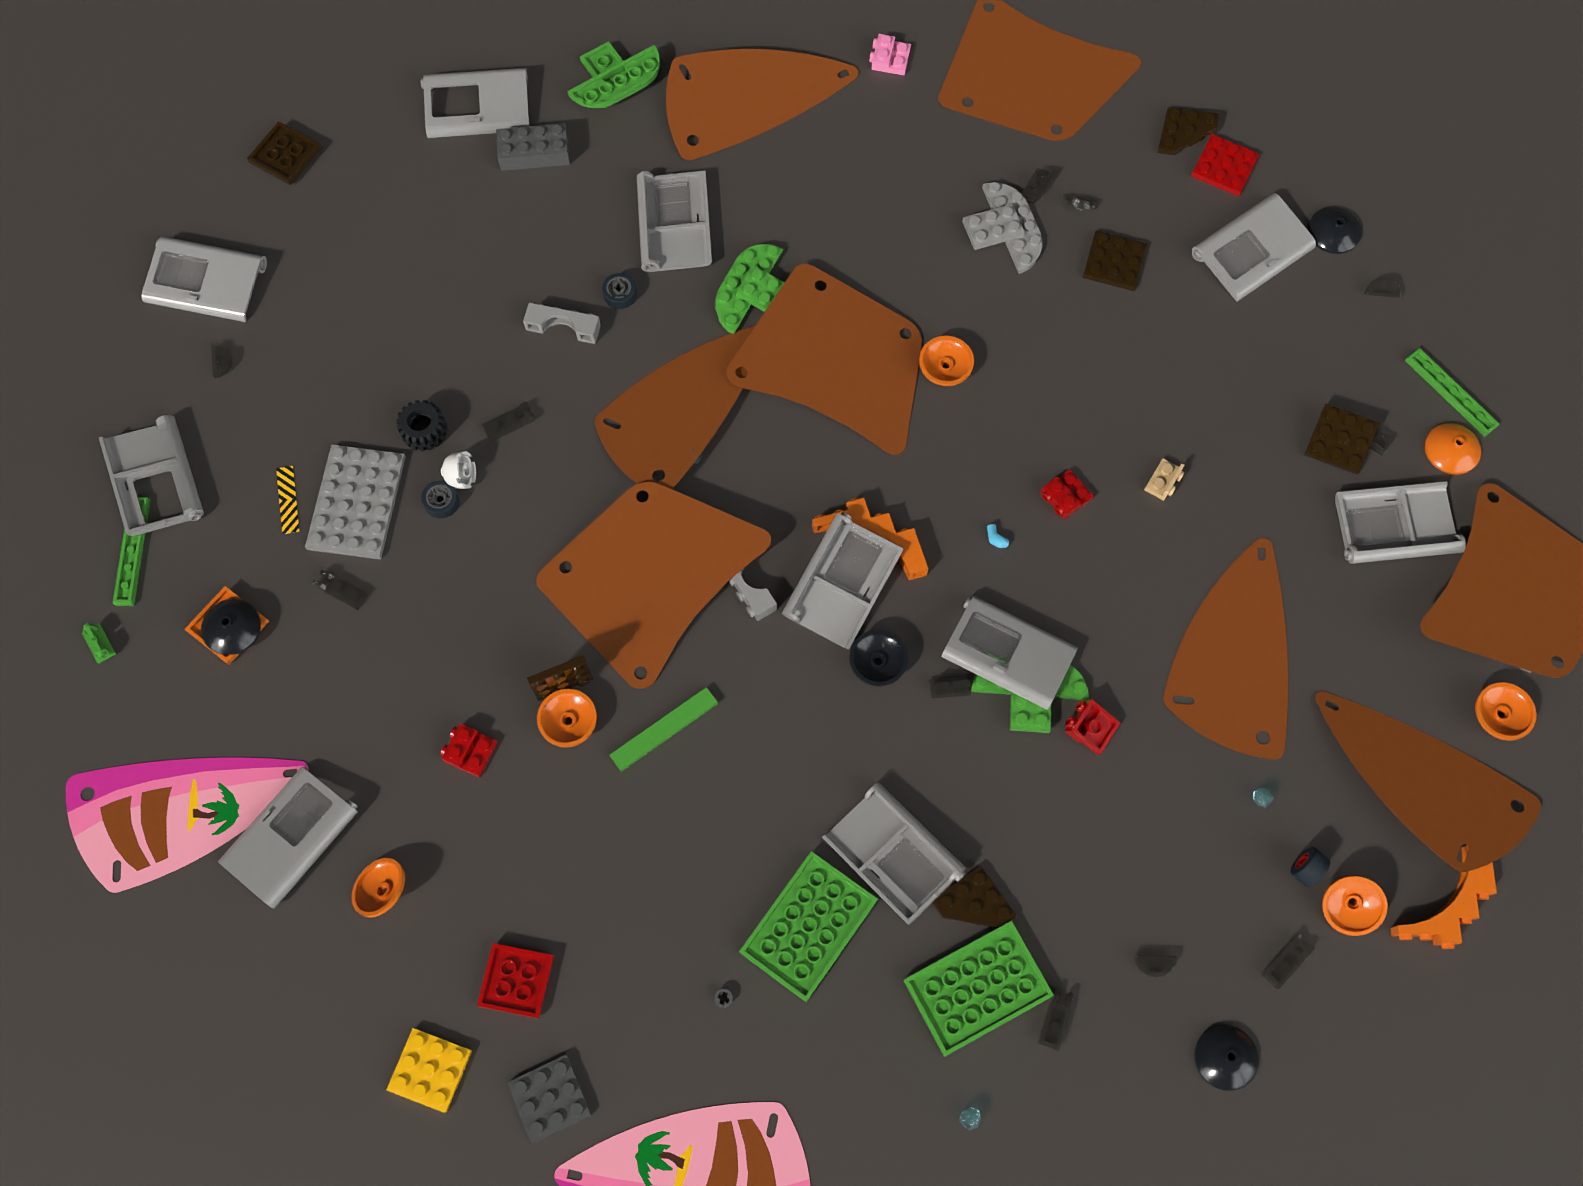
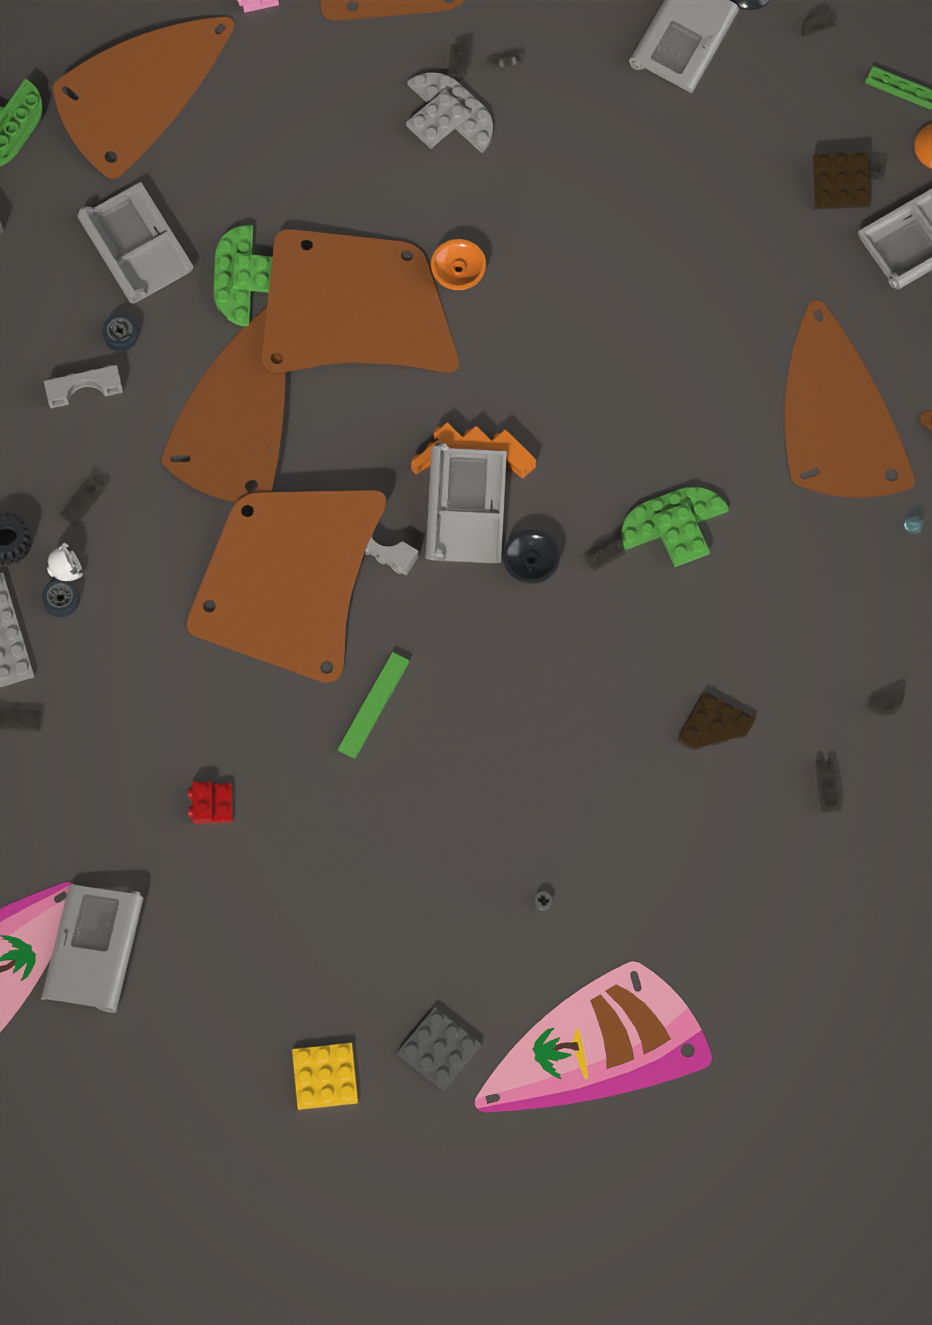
camera: 25 degrees left, 0 degrees up
(378, 887) = (192, 947): orange dish -> none
(515, 981) = (359, 970): red plate -> none
(560, 677) = (263, 701): dark brown plate -> none
(562, 706) = (282, 722): orange dish -> none
(808, 926) = (584, 808): bright green plate -> none
(904, 857) = (628, 710): light grey piece -> none
(970, 1118) = (795, 896): clear light blue plate -> none
(978, 988) = (751, 791): bright green plate -> none
(996, 539) = (581, 406): medium azure arm -> none
(1010, 652) = (642, 499): light grey piece -> none
(1066, 494) = (623, 338): red plate -> none
(1091, 726) = (742, 531): red plate -> none
(1114, 260) = (563, 102): dark brown plate -> none
(1163, 479) = (703, 286): tan bracket -> none

